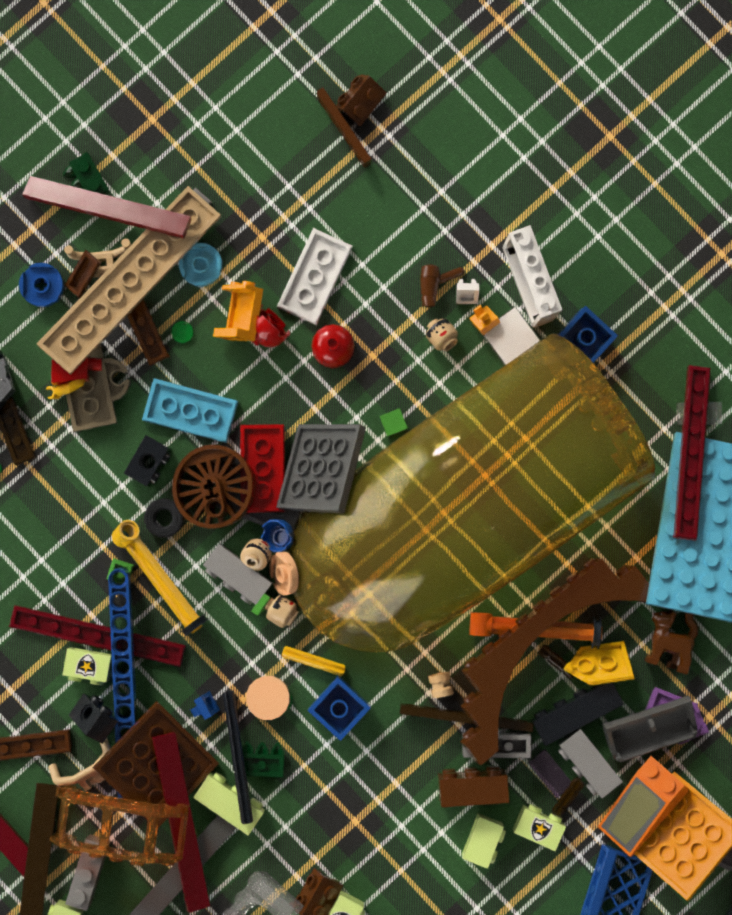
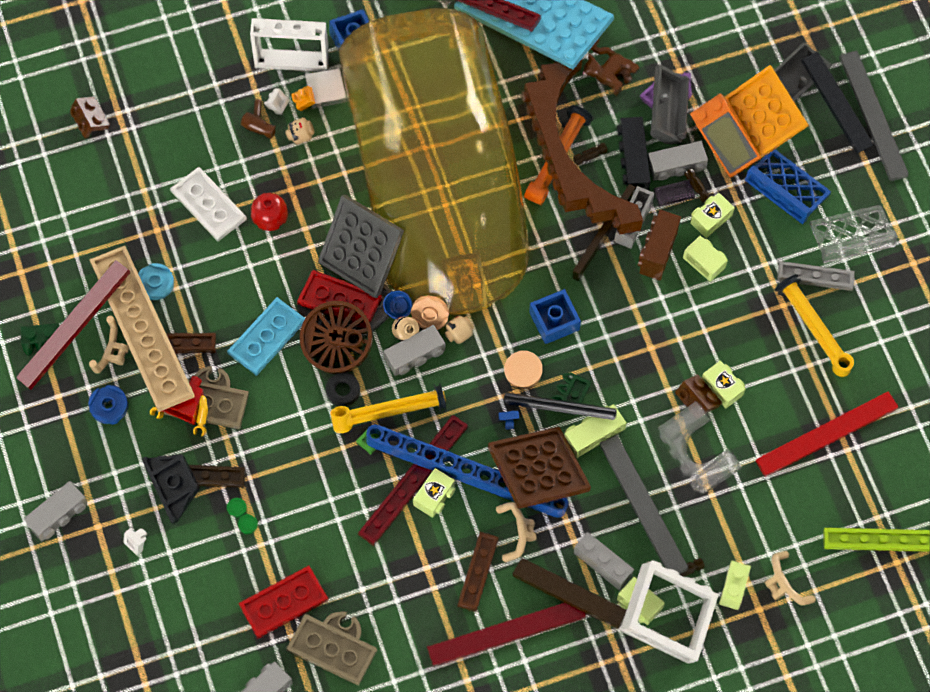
camera: 70 degrees left, 20 degrees down
(83, 274) = (116, 367): reddish brown tile -> none
(93, 717) = (478, 500): black brick -> none
(109, 804) = (556, 503): clear orange windscreen -> none
(136, 467) = (294, 391): black brick -> none
(176, 793) = (593, 467): dark red tile -> none
(182, 332) = (201, 317): green piece -> none
(242, 312) = (209, 260): light orange panel -> none
(259, 607) = (449, 345): bright green tile -> none
(269, 329) = (231, 250): red cylinder -> none
(313, 661) = (509, 325): yellow axle -> none
(343, 127) = (104, 135): reddish brown tile -> none
(393, 422) = (351, 190): bright green tile -> none
(440, 684) = (569, 239): tan wheel -> none
(601, 665) = (605, 121): yellow tile -> none

